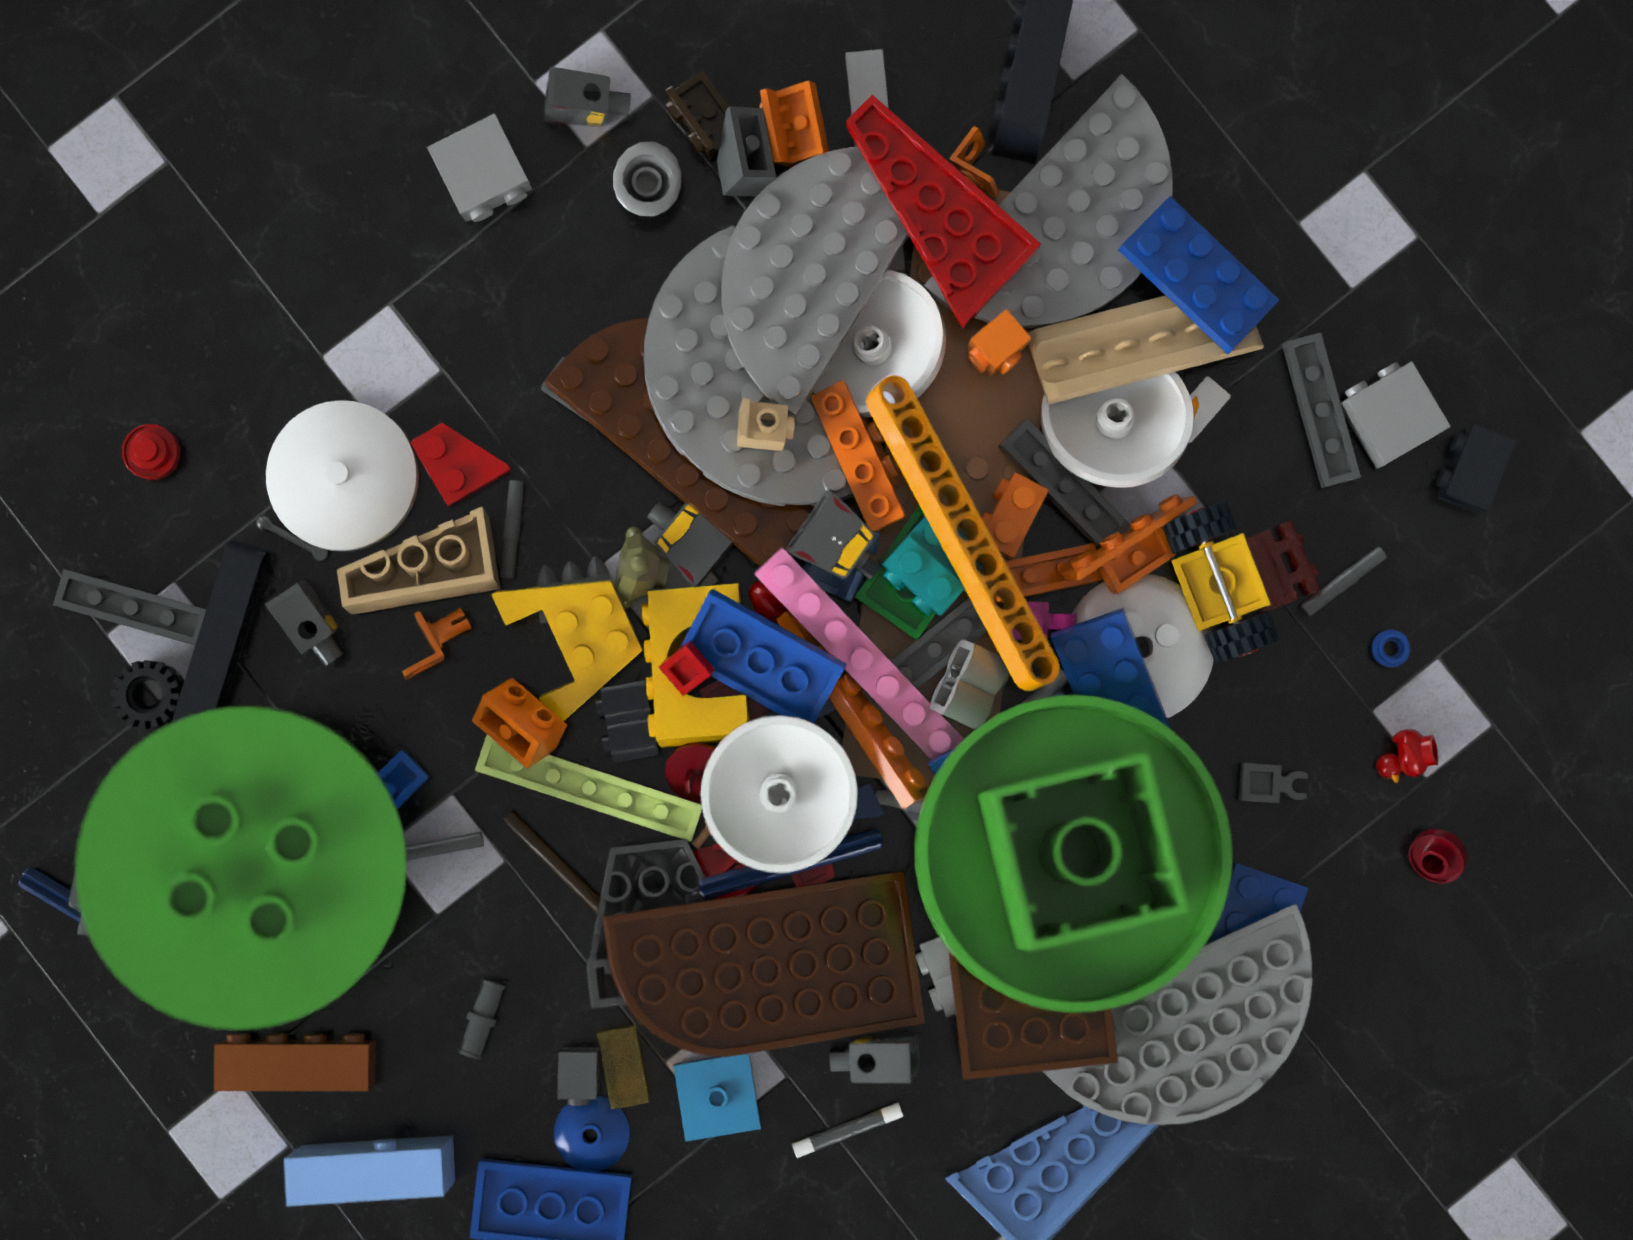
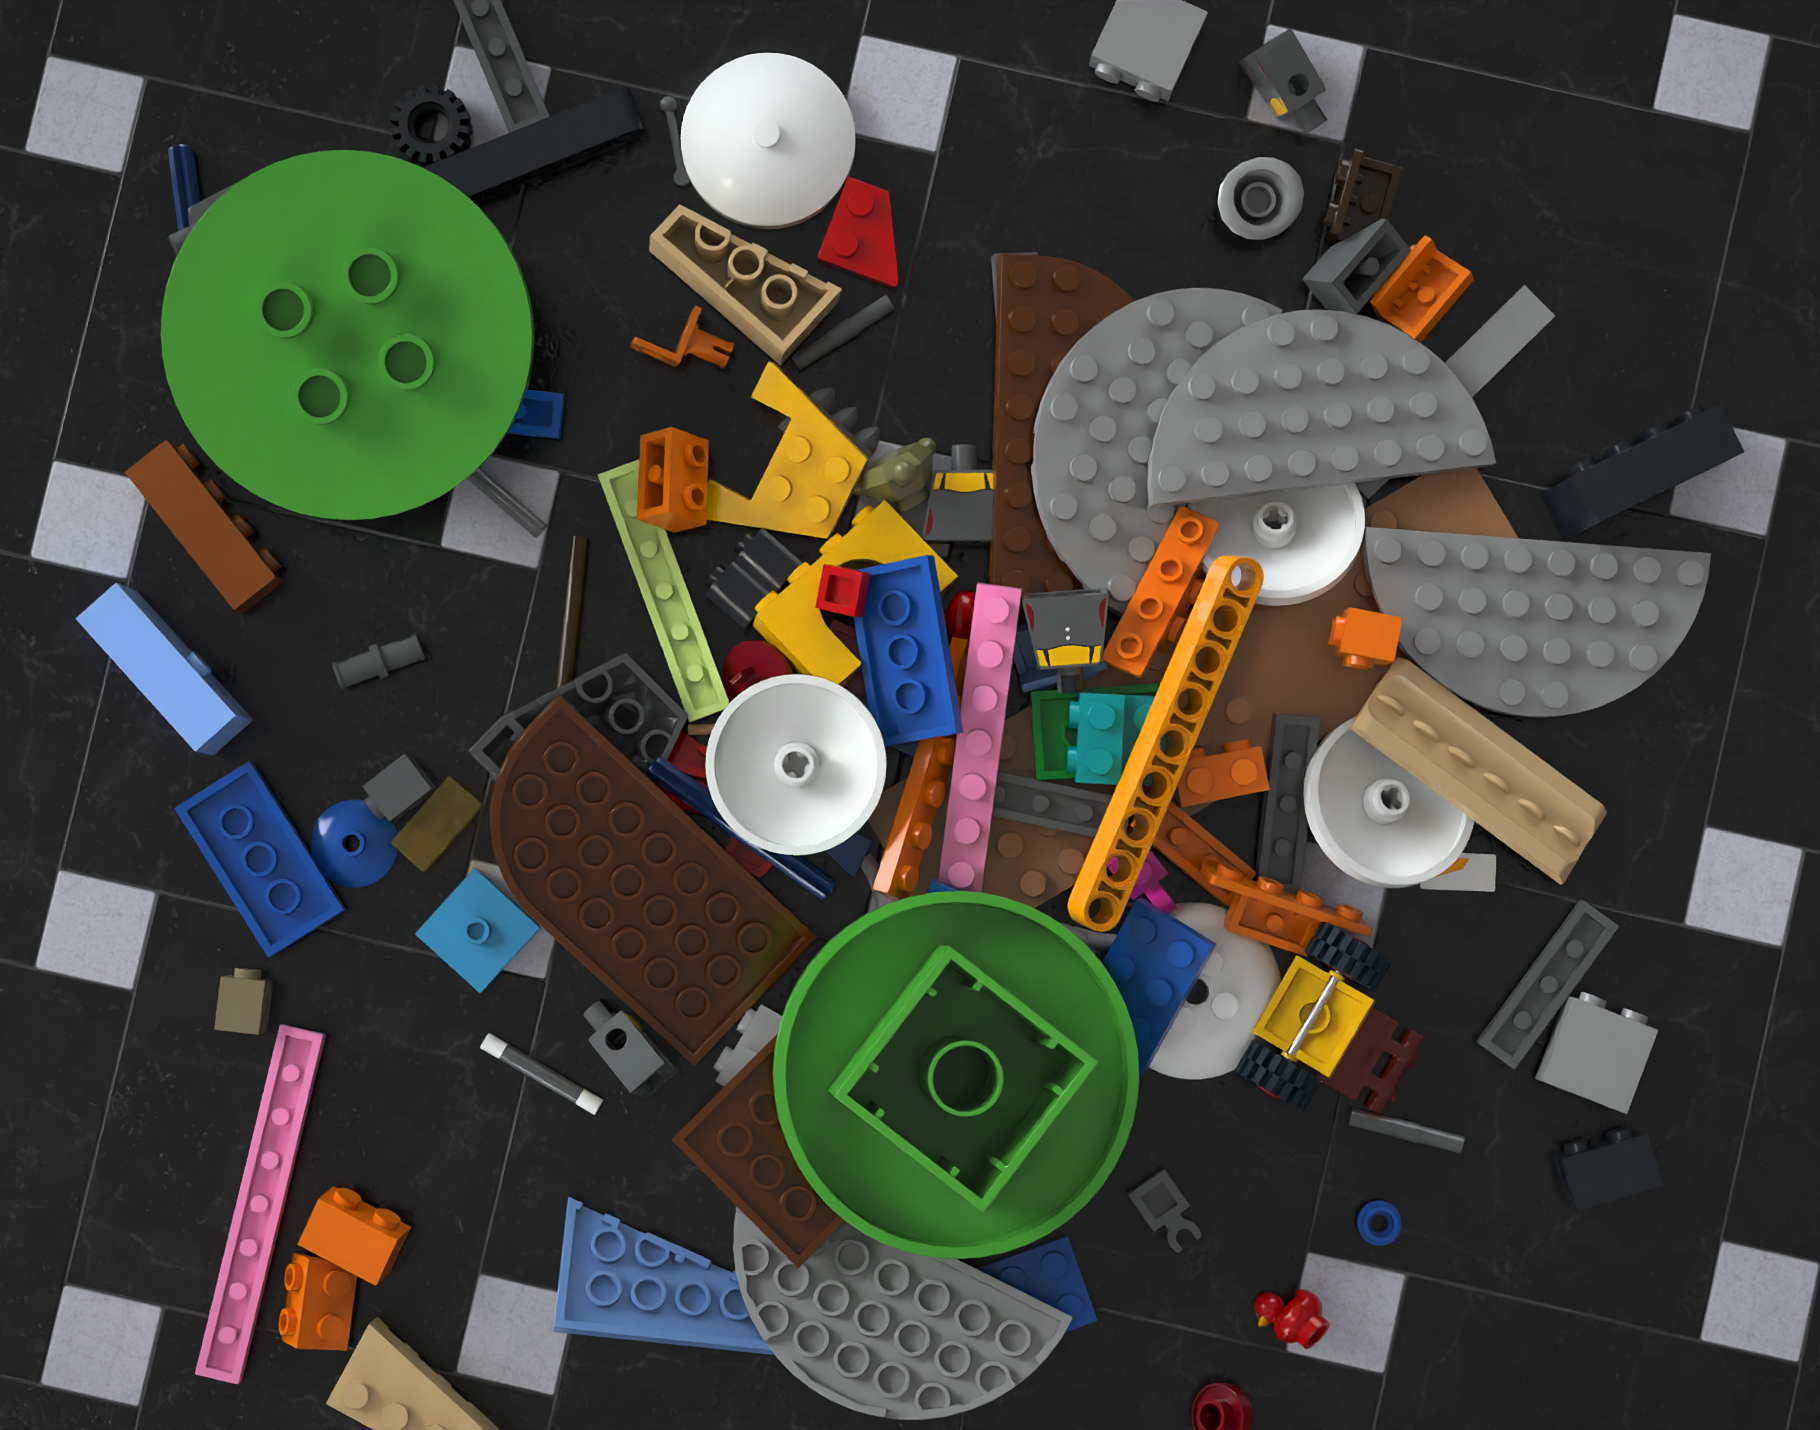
camera: 50 degrees right, 0 degrees up
(301, 605) = (614, 195): dark grey torso -> none
(756, 435) = (1104, 483): tan brick -> none
(953, 224) = (1443, 509): red wing -> none
(964, 164) = (1500, 491): orange bracket -> none
(970, 685) = (1034, 860): light grey brick -> none
(1198, 275) = (1580, 770): blue plate -> none

